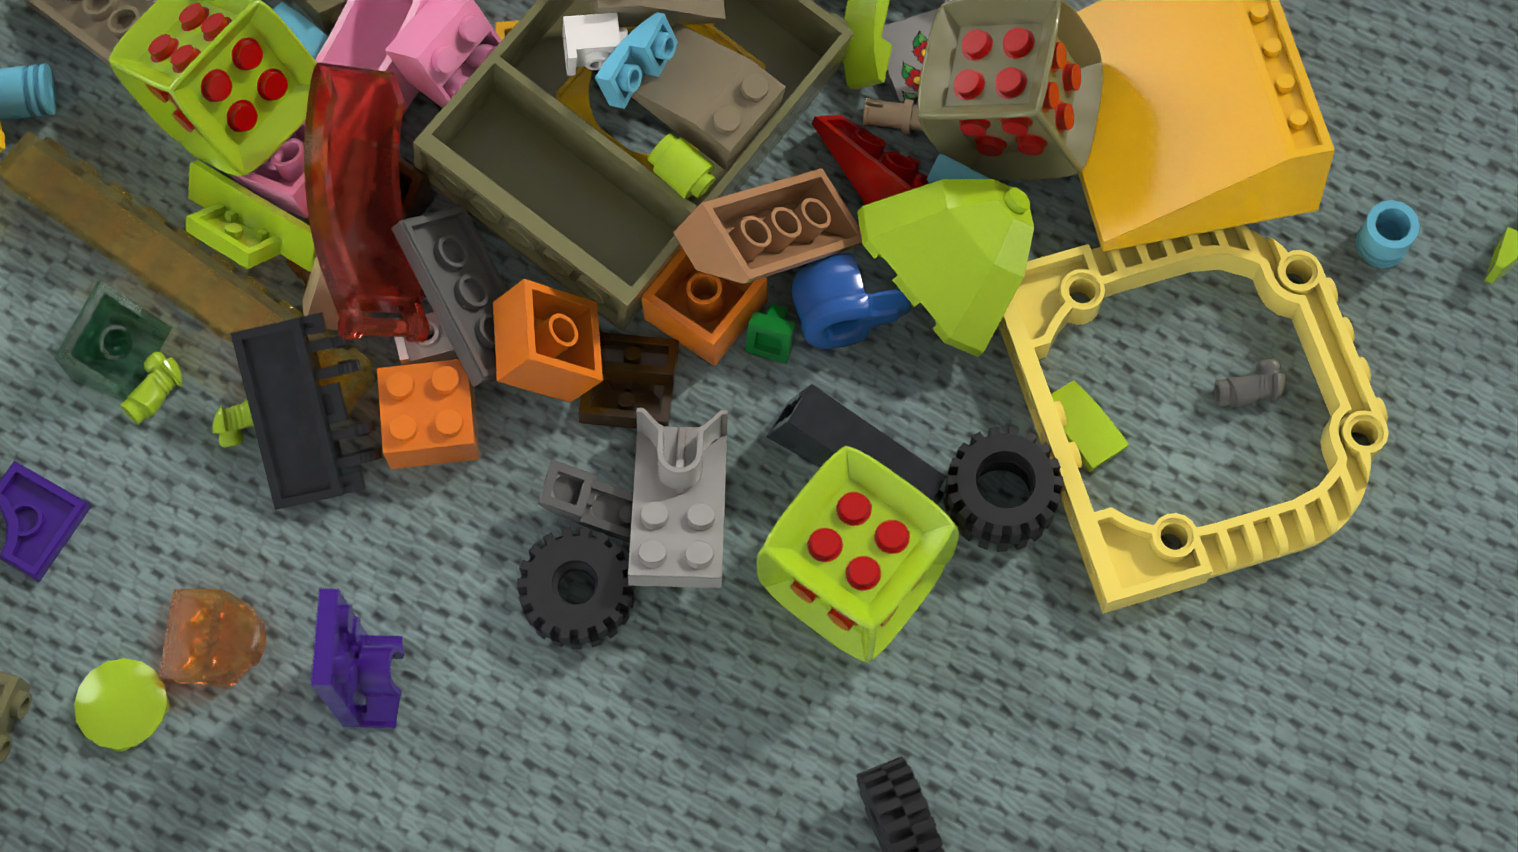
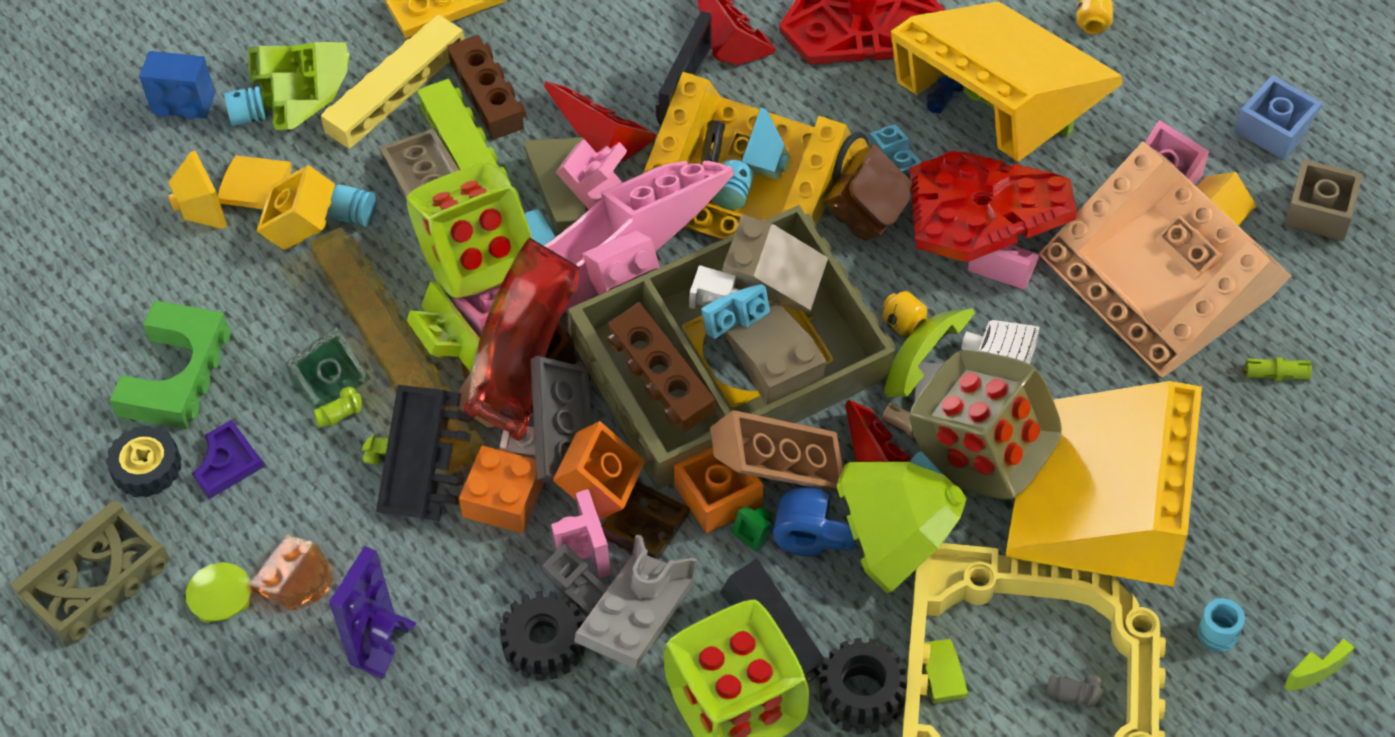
camera: 25 degrees right, 15 degrees down
(522, 129) = (638, 325): none -> reddish brown brick
(570, 435) = (584, 534): none -> bright pink bracket
(682, 166) = (735, 388): lime brick -> none

